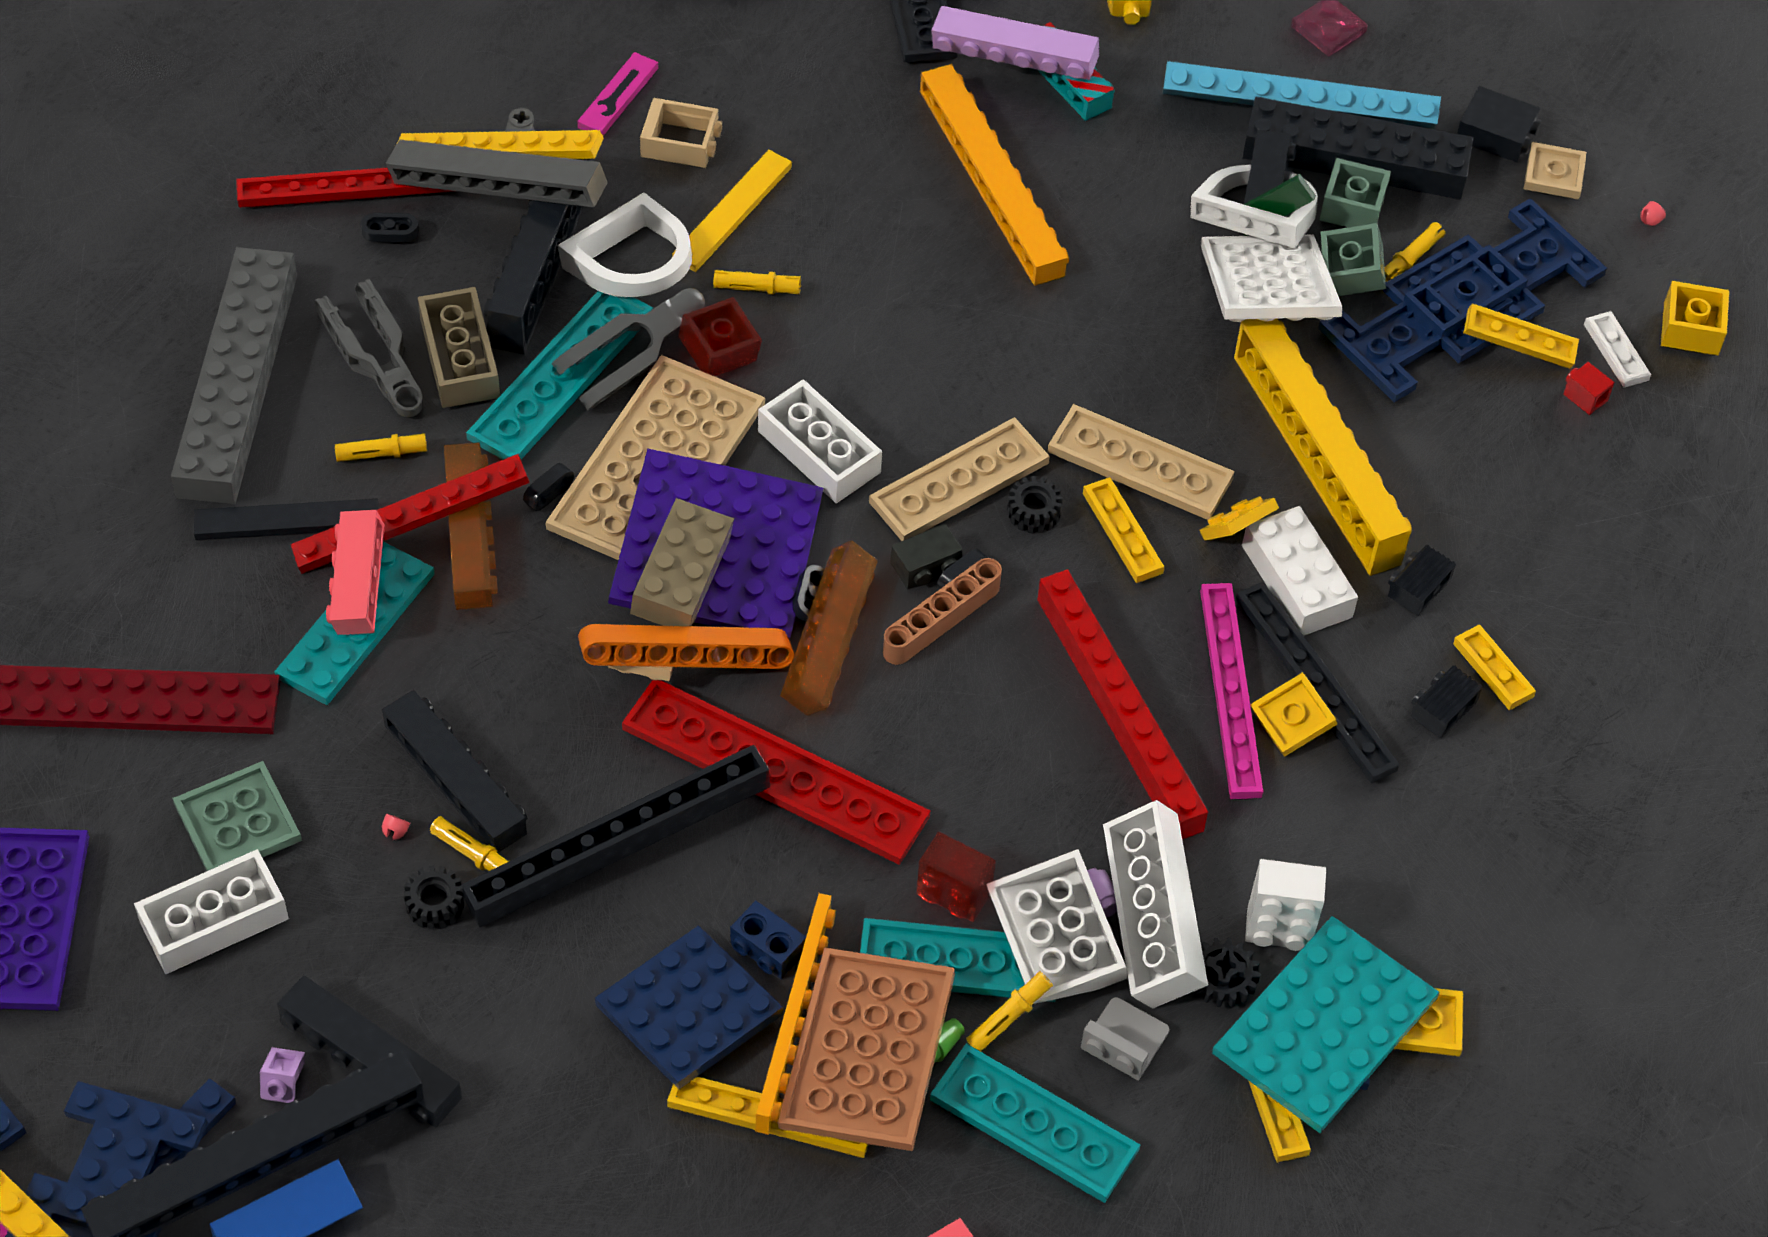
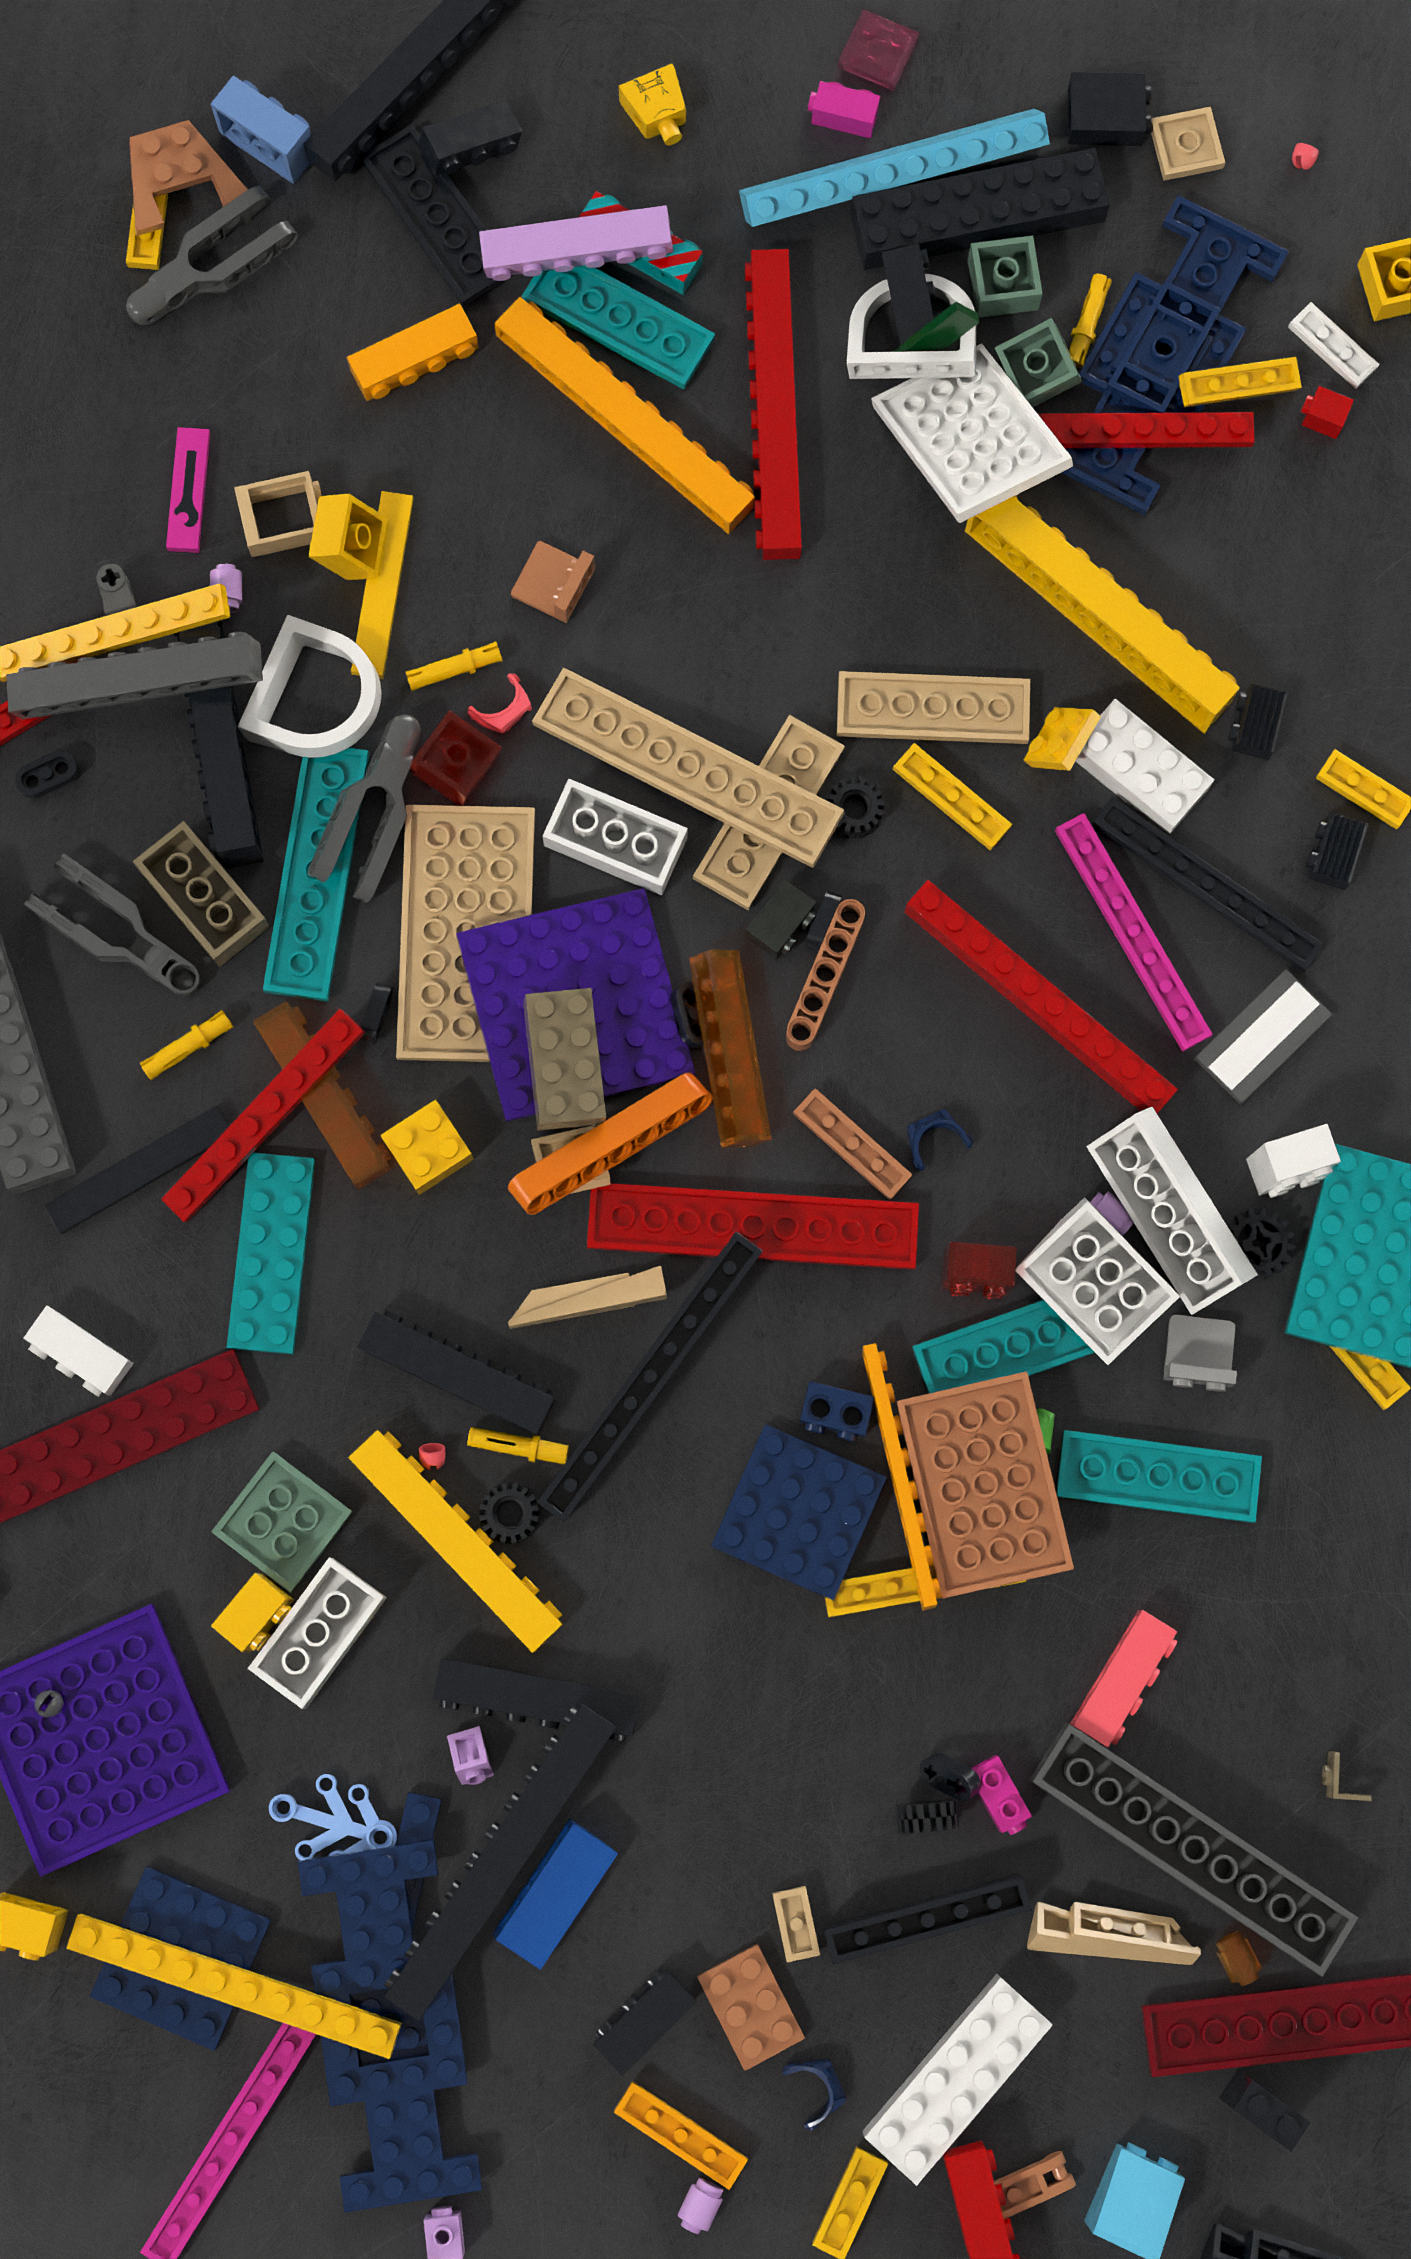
camera: 25 degrees left, 25 degrees up
(132, 1078) = (339, 1823): none -> light blue plant
(151, 622) = (77, 1352): none -> white brick
(164, 861) = (253, 1613): none -> yellow brick
(356, 572) = (252, 1213): coral brick -> none
(375, 899) = (456, 1541): none -> yellow brick
(531, 595) = (427, 1147): none -> yellow brick
(599, 765) = (590, 1297): none -> tan wedge
(611, 160) = (231, 578): none -> lavender brick
(722, 159) = (347, 537): none -> yellow brick
(780, 331) = (508, 717): none -> coral helmet
(846, 72) = (413, 353): none -> light orange brick
(873, 257) = (553, 580): none -> nougat bracket
(897, 745) = (852, 1144): none -> nougat plate
(910, 419) = (688, 767): none -> tan plate
(977, 760) = (938, 1119): none -> dark blue helmet
(1013, 1008) = (1097, 1373): yellow pin -> none
(1026, 114) = (623, 321): none -> teal plate
(1118, 213) = (774, 404): none -> red brick
(1281, 48) = (844, 108): none -> dark pink brick
(1293, 714) = (1204, 935): yellow plate -> none
(1309, 816) = (1263, 1036): none -> tile
(1427, 339) = (1151, 429): none -> red plate

